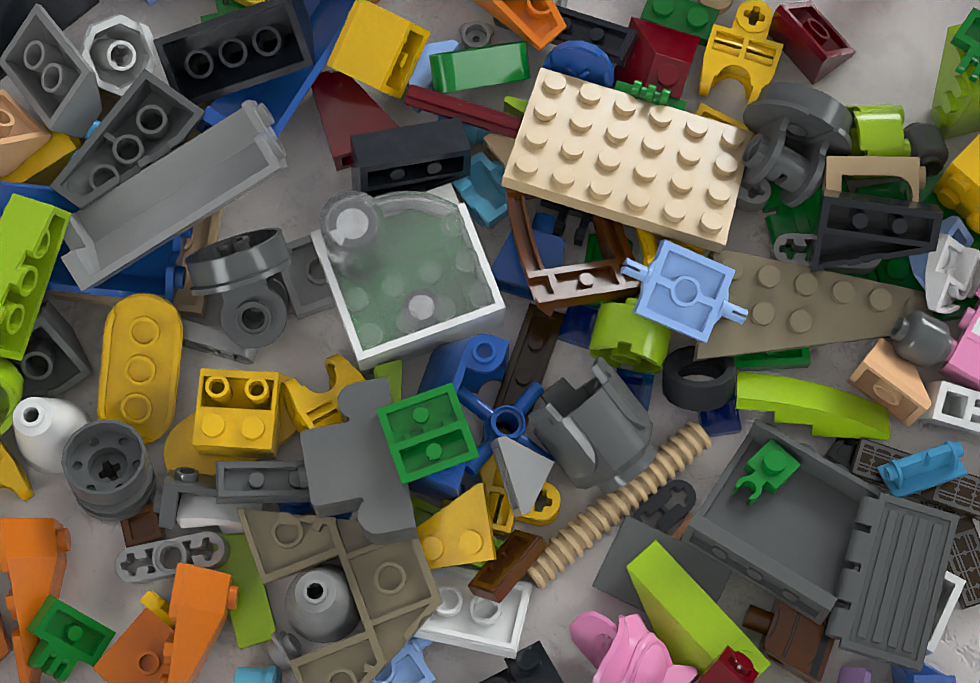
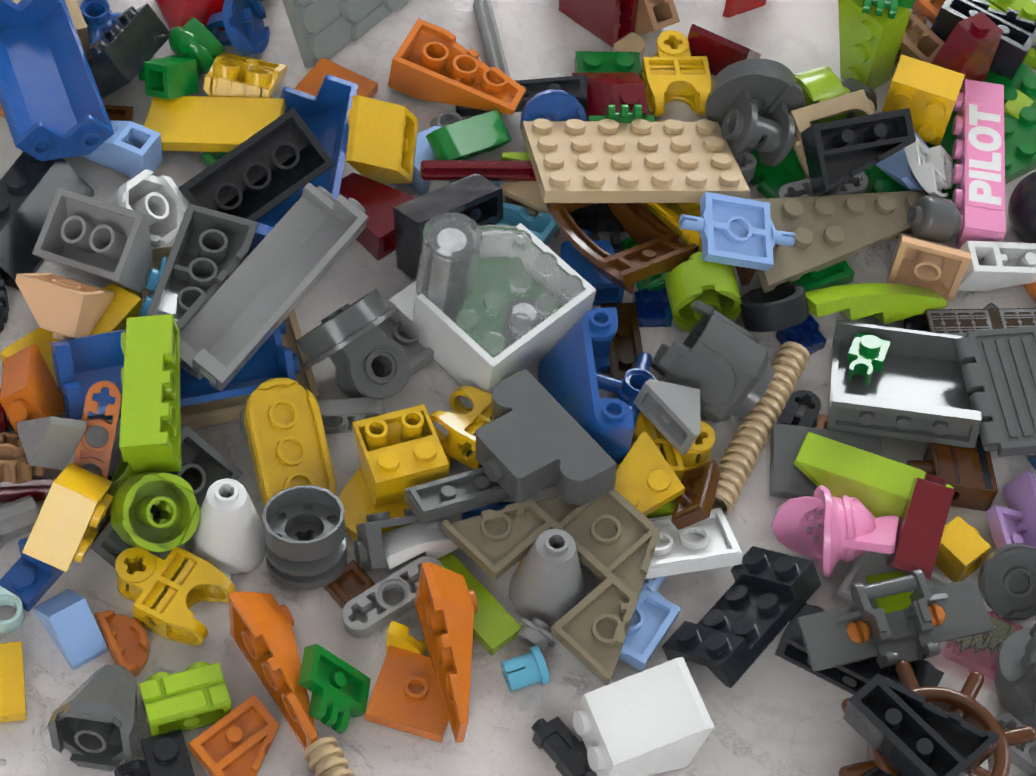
camera: 30 degrees left, 20 degrees down
(427, 433) = (587, 390): green slope -> none
(923, 469) = (988, 309): dark azure hinge -> none

